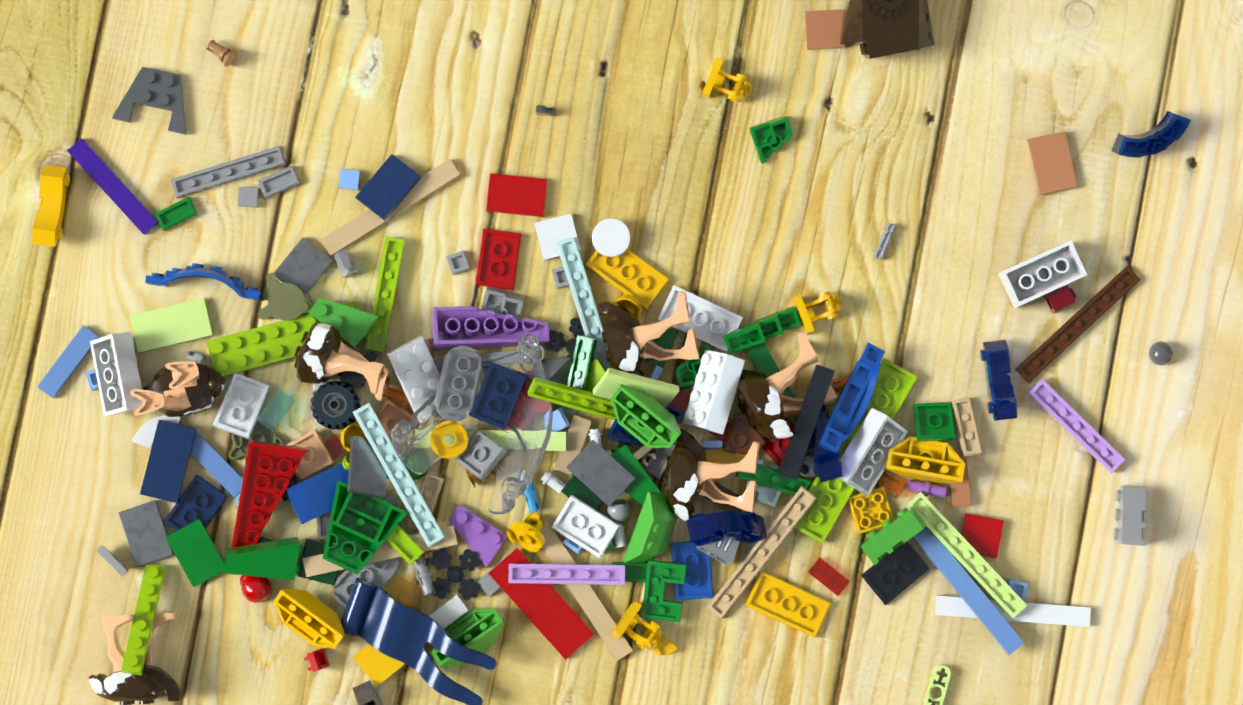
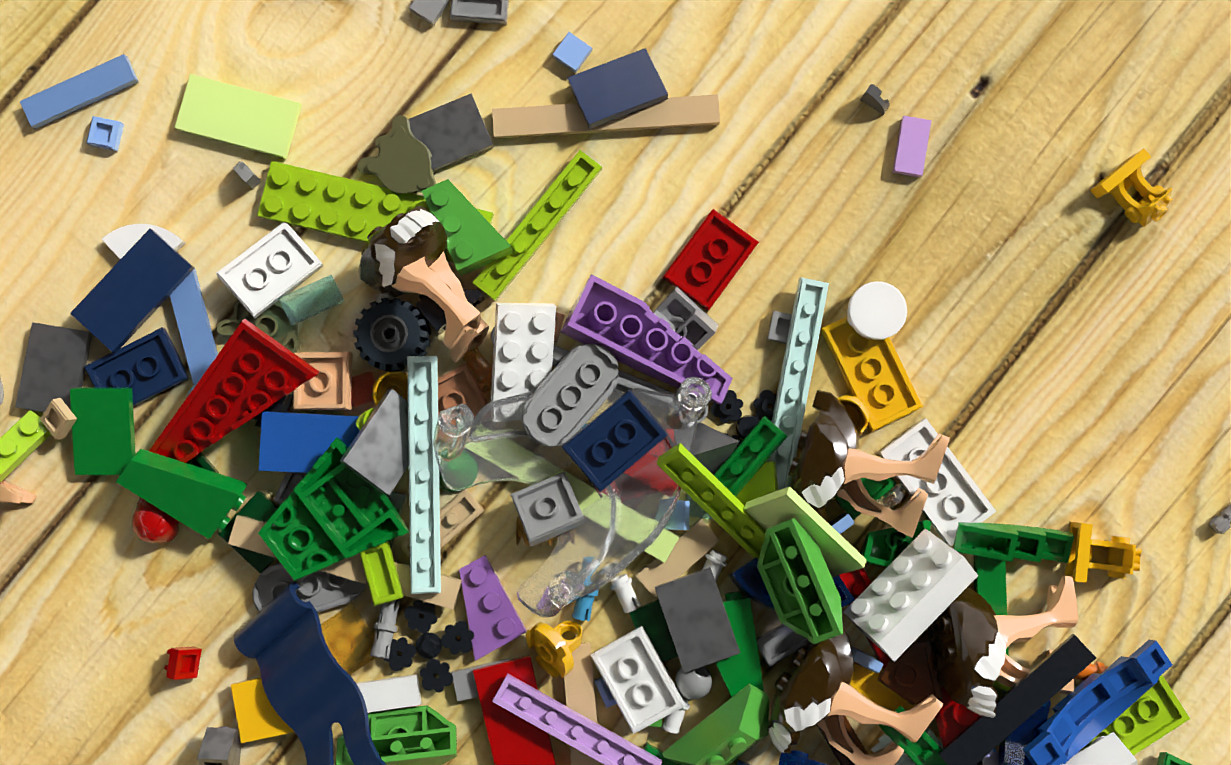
camera: 20 degrees right, 0 degrees up
(116, 373) = (128, 138): white brick -> none
(167, 559) = (58, 418): none -> tan tile
(180, 390) = (189, 201): animal -> none
(197, 270) = (311, 63): blue piece -> none
(309, 617) = (203, 600): yellow wedge -> none
(344, 264) = (505, 159): light grey tile -> none
(449, 428) = (499, 464): yellow tile -> none
(458, 262) = (656, 236): light grey tile -> none
(516, 195) = (779, 189): red tile -> none
(553, 231) = (805, 261): white tile -> none
(581, 127) = (911, 146): none -> lavender tile
(643, 453) = (768, 622): dark tan tile -> none
(770, 136) = (1154, 291): green slope -> none

